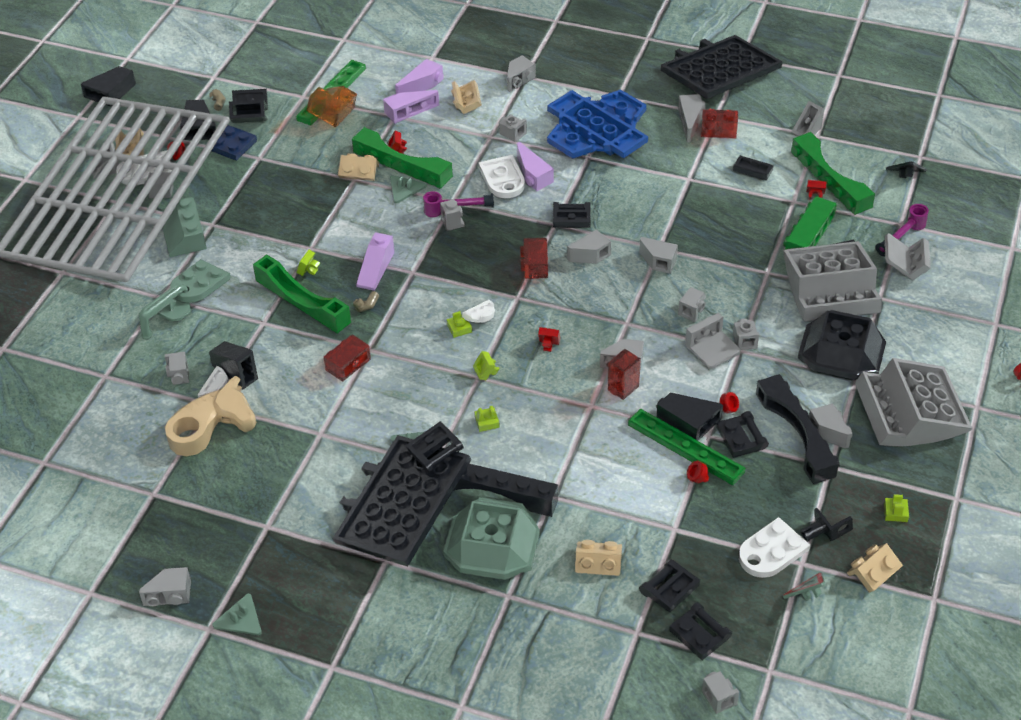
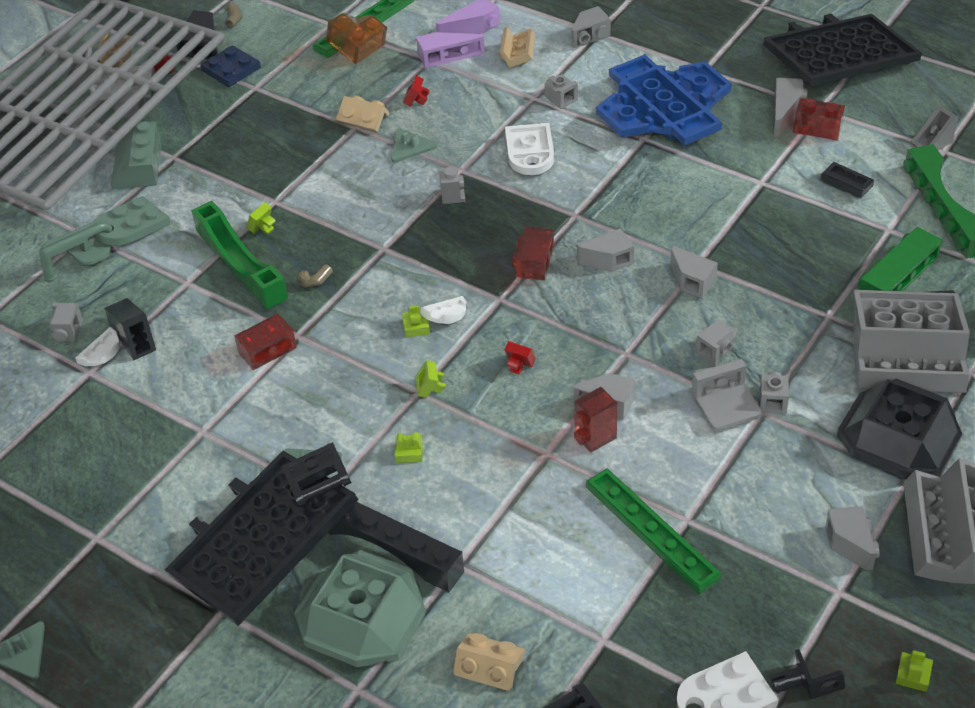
camera: 15 degrees right, 0 degrees up
(203, 415) = (71, 384): tan animal -> none
(248, 105) = (264, 26): black piece -> none
(375, 261) = (342, 228): lavender slope -> none
(429, 170) = (443, 127): green arch -> none
(433, 199) = (434, 161): magenta piece -> none
(534, 169) = (572, 147): lavender slope -> none
(571, 215) = (598, 206): black plate -> none
(689, 414) = (667, 487): black slope -> none
(697, 472) = (655, 568): red tile -> none
(730, 402) = (724, 480): red tile -> none
(736, 438) = (721, 528): black plate -> none
(778, 398) = (822, 579): black arch -> none
(817, 187) = (922, 215): red tile -> none

